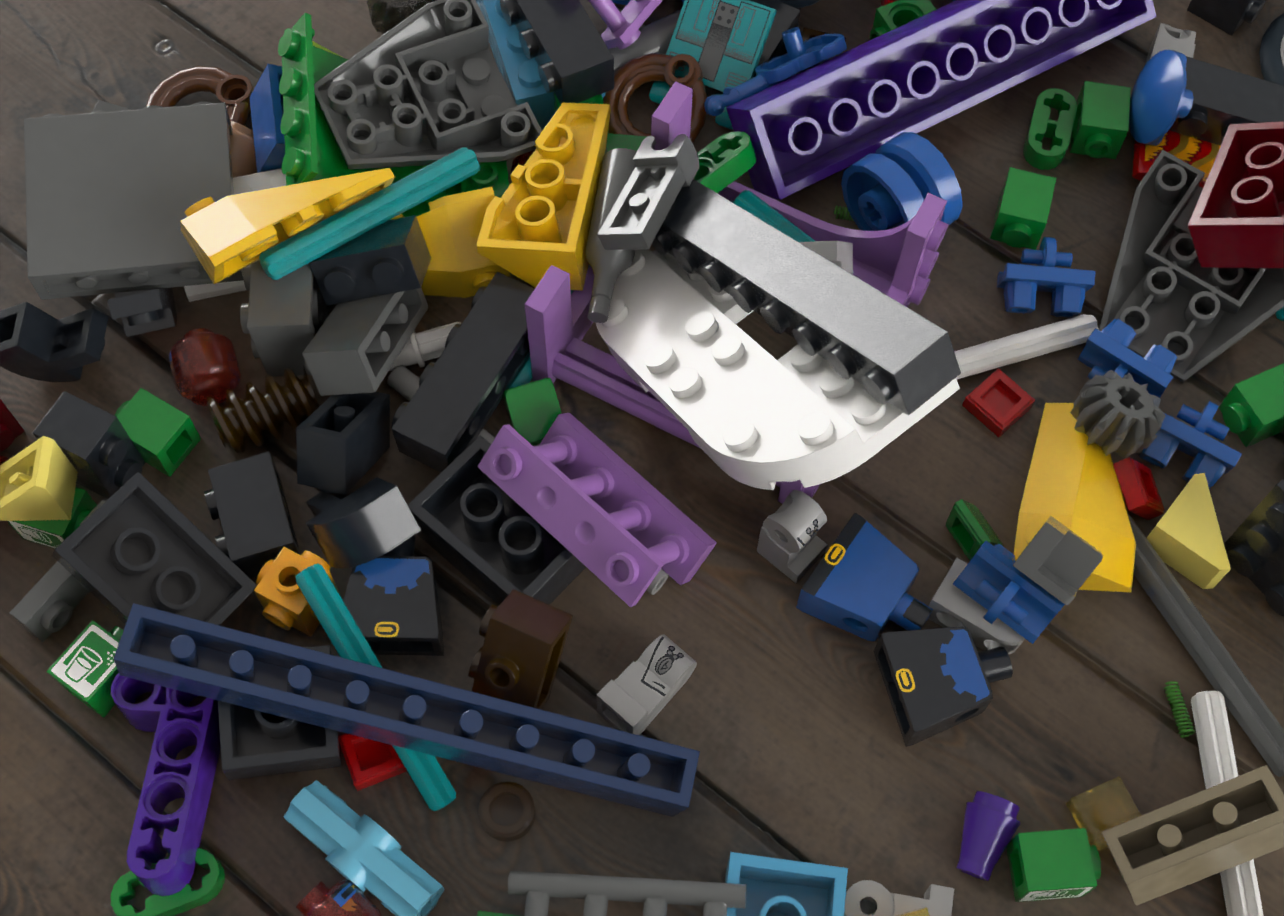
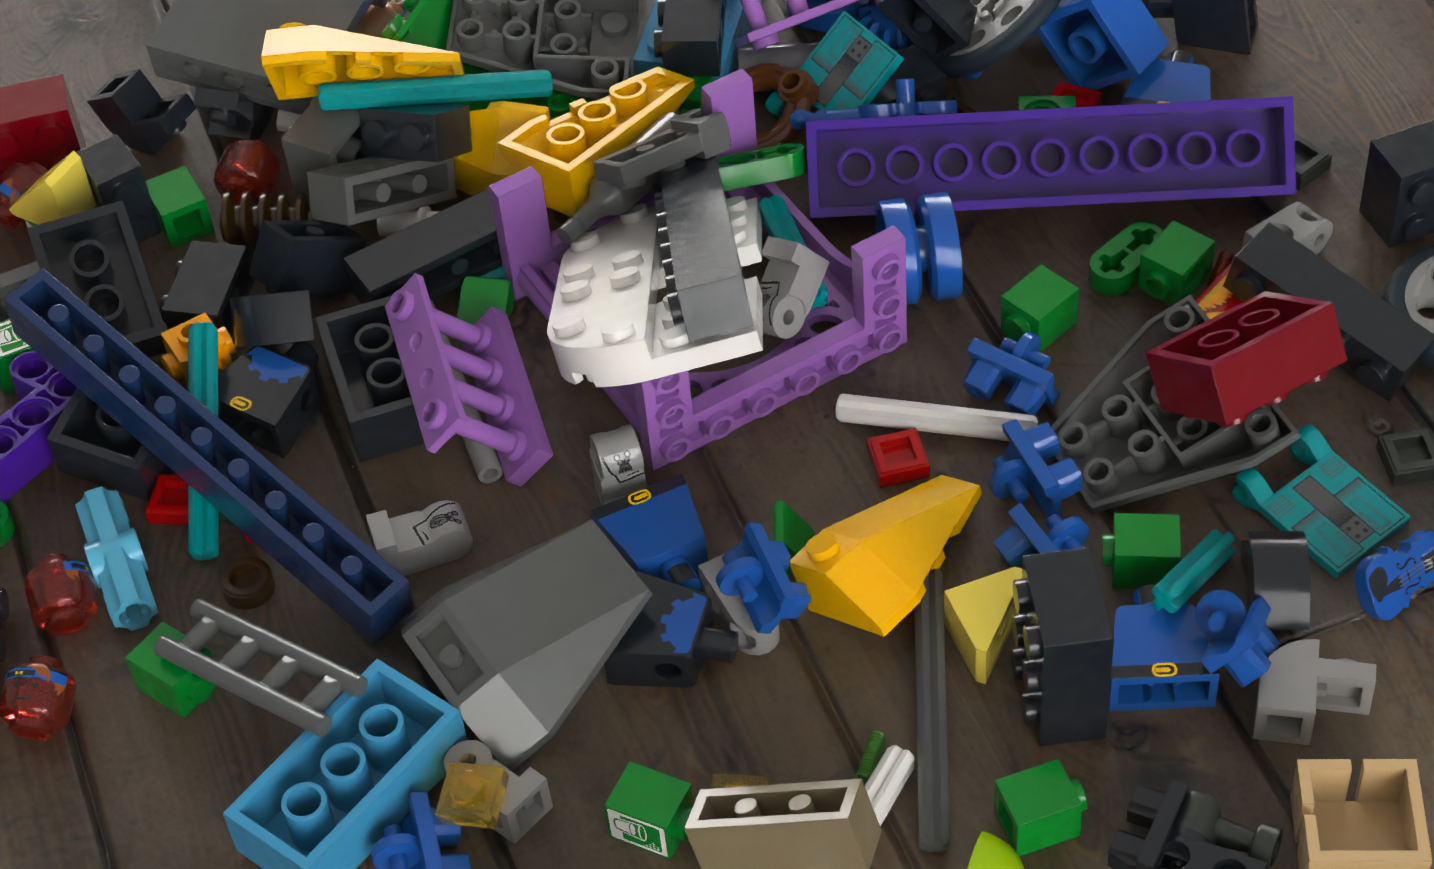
camera: 35 degrees right, 15 degrees down
(520, 650) = (329, 455): dark brown brick -> none
(830, 747) = (527, 637): none -> dark grey wedge
(986, 833) = (610, 761): dark purple cone -> none
(1058, 560) = (807, 559): dark grey panel -> none
(1117, 414) = (975, 488): dark grey gear -> none
(1139, 488) = (963, 560): red tile -> none
(1159, 97) = (1222, 250): blue dish -> none

